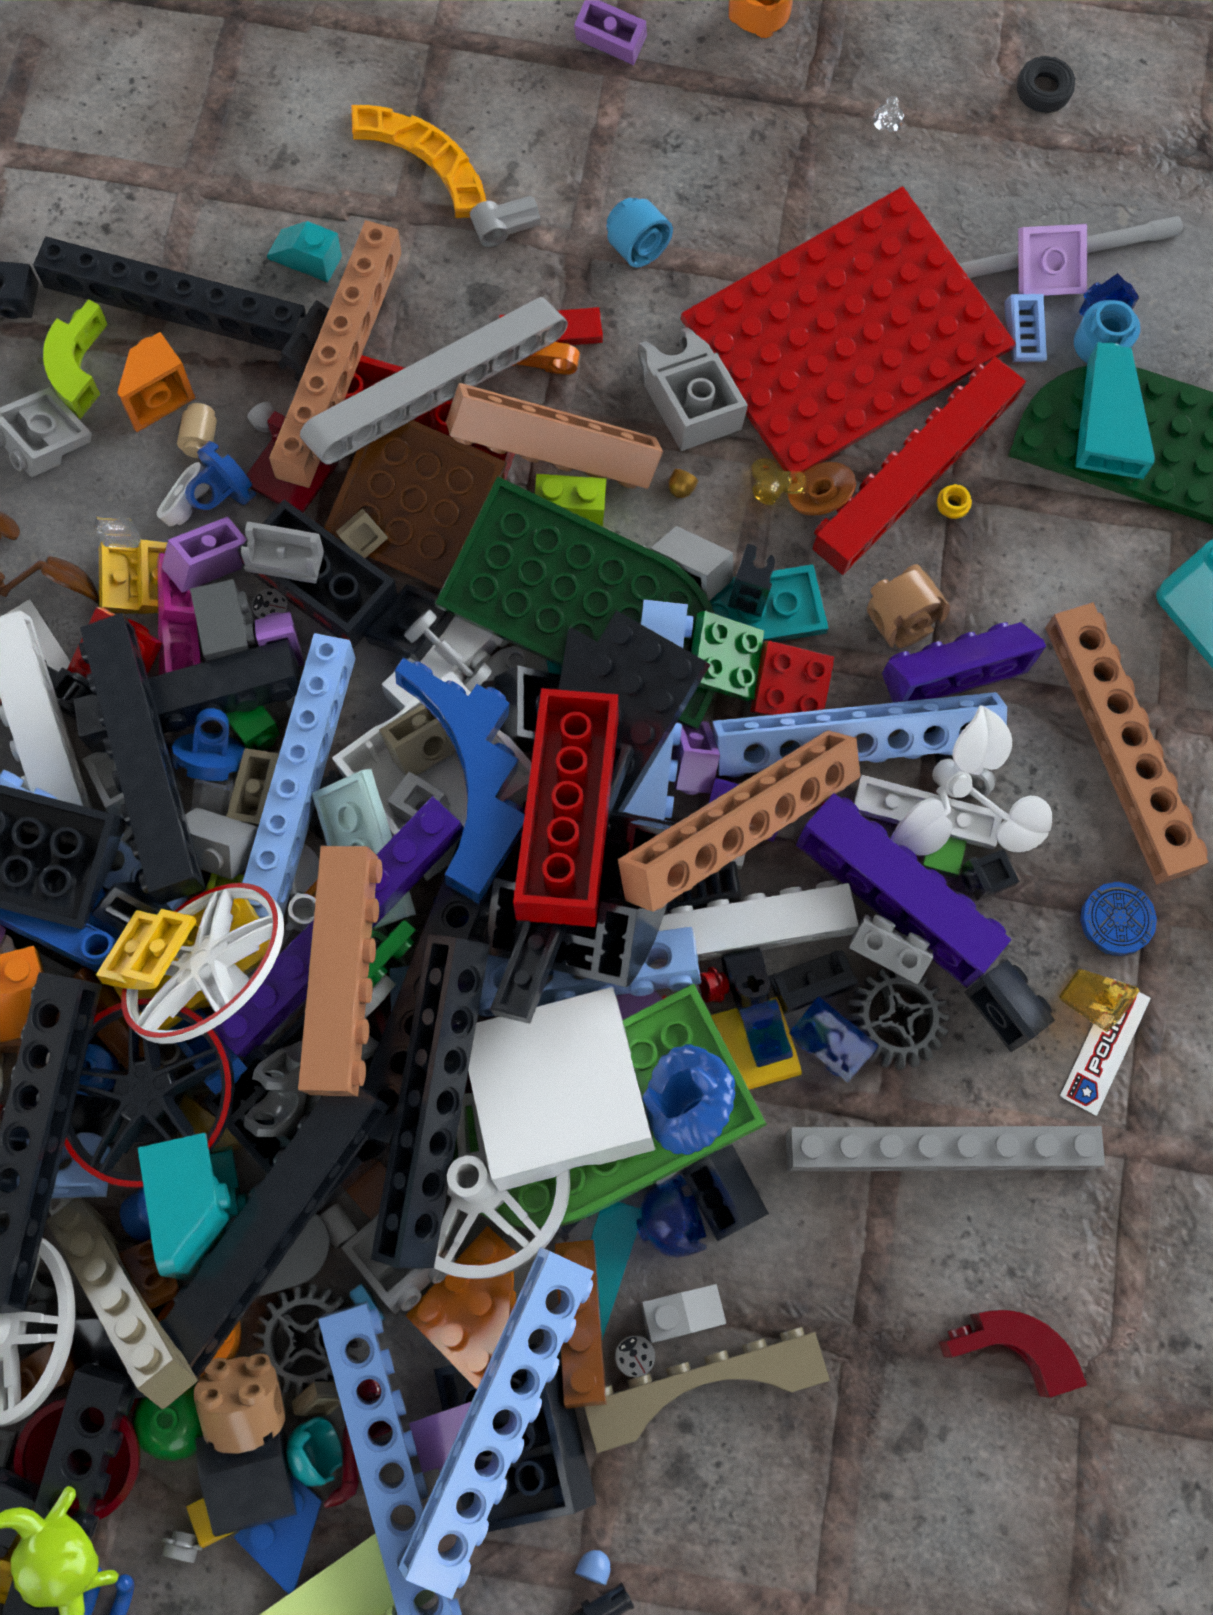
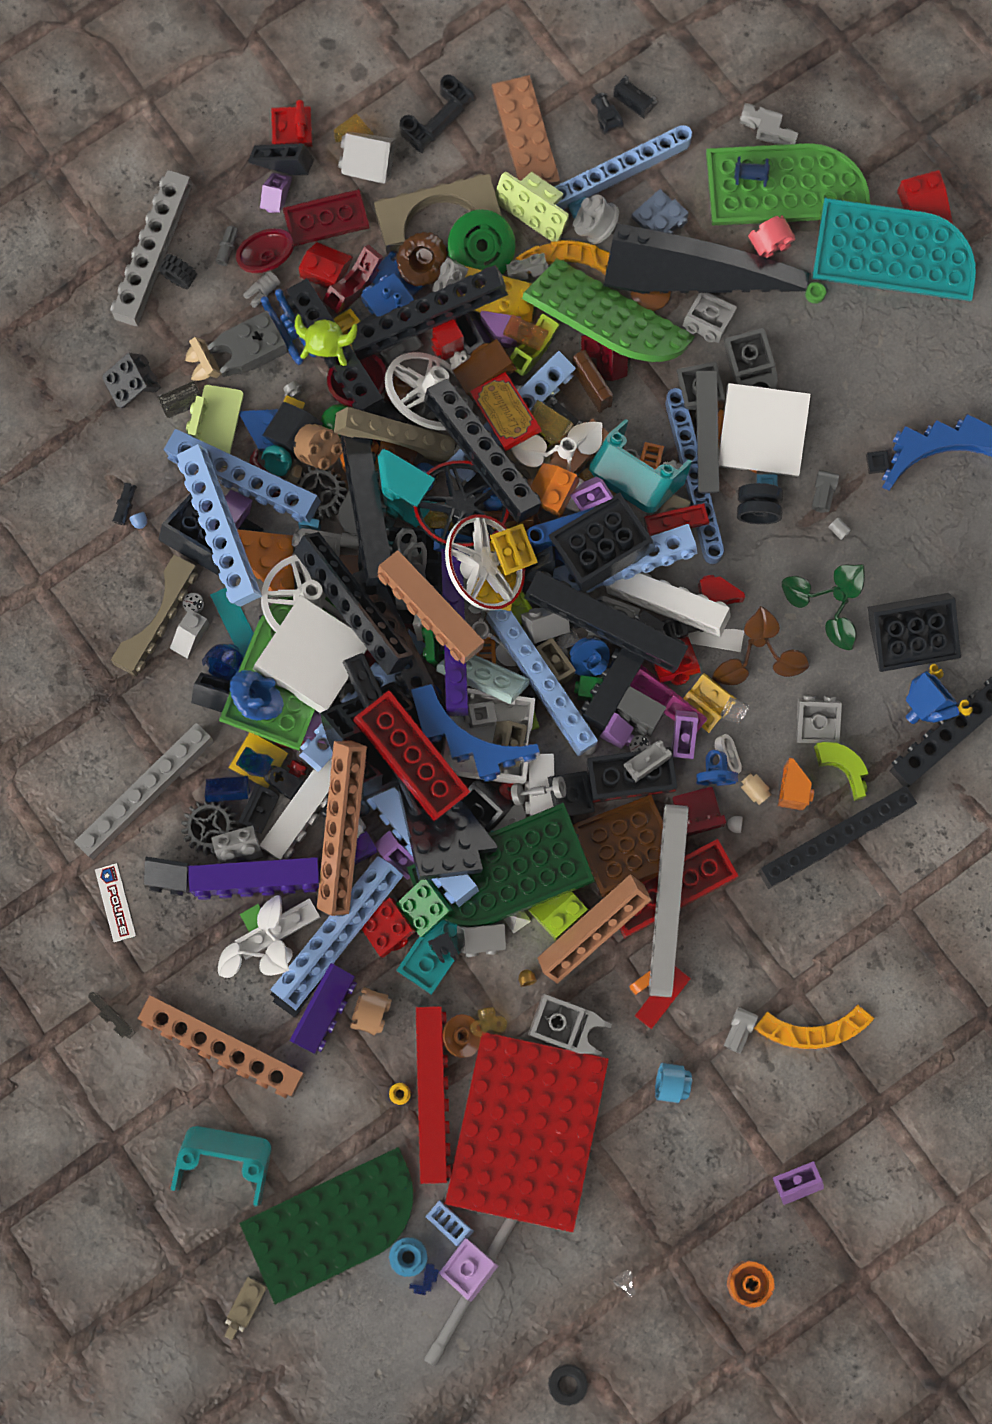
camera: 140 degrees right, 5 degrees up
(301, 344) = (752, 876): black hinge -> none
(307, 250) = (809, 920): teal slope -> none
(337, 347) = (727, 873): nougat brick -> none
(361, 534) = (629, 806): dark tan plate -> none
(584, 1351) = (210, 581): dark orange plate -> none
(988, 875) = (226, 925): black bracket -> none
(1040, 1346) = (52, 750): dark red arch -> none
(1098, 998) = (135, 915): clear yellow slope -> none
(1113, 416) = (363, 1202): teal slope -> none
(1118, 918) = (156, 962): blue tile -> none

